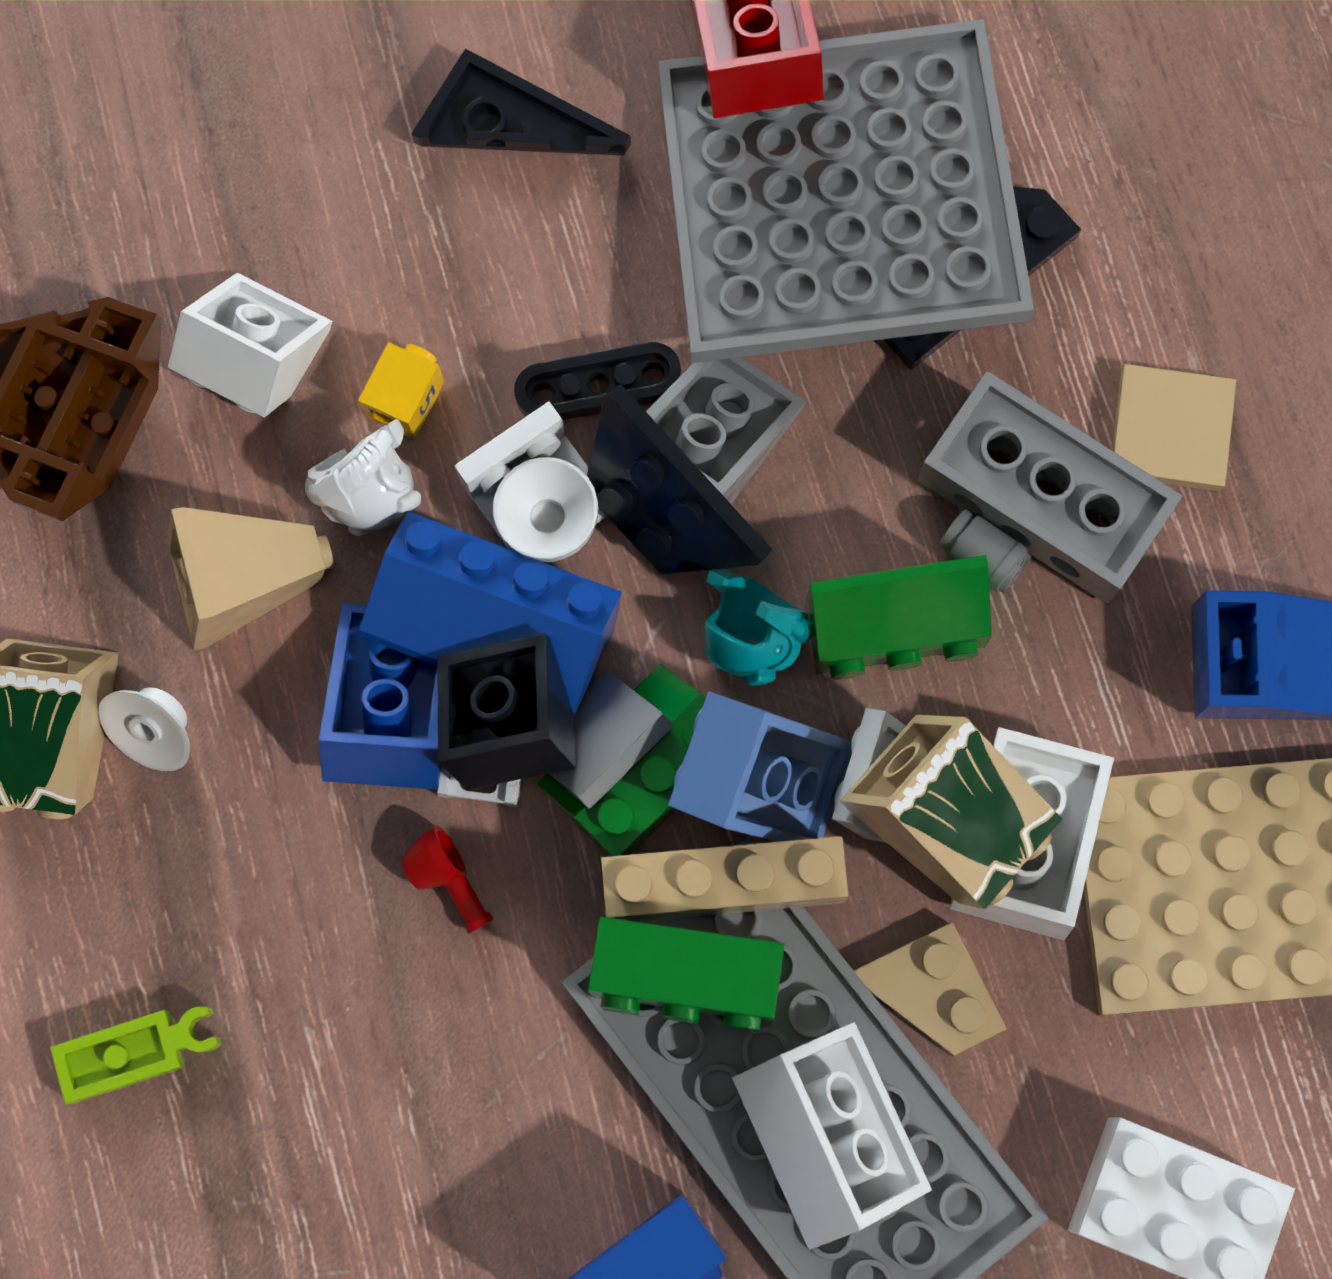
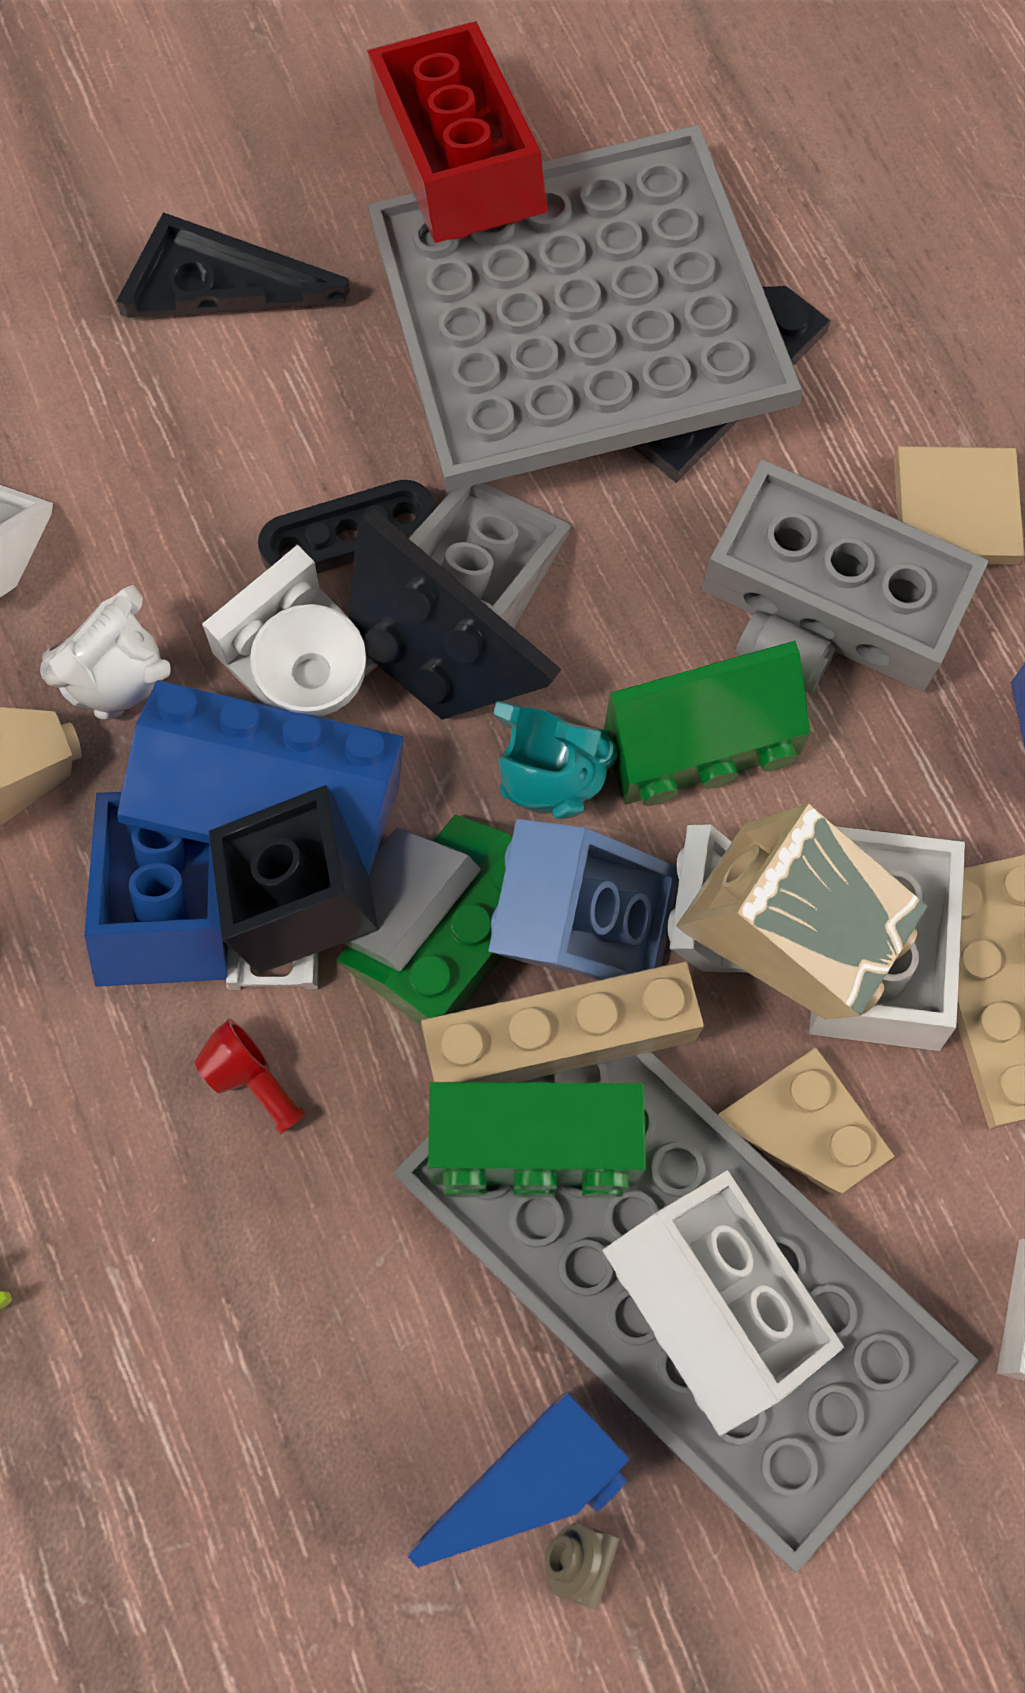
camera: 15 degrees left, 5 degrees down
(402, 387) = (136, 552): yellow brick -> none

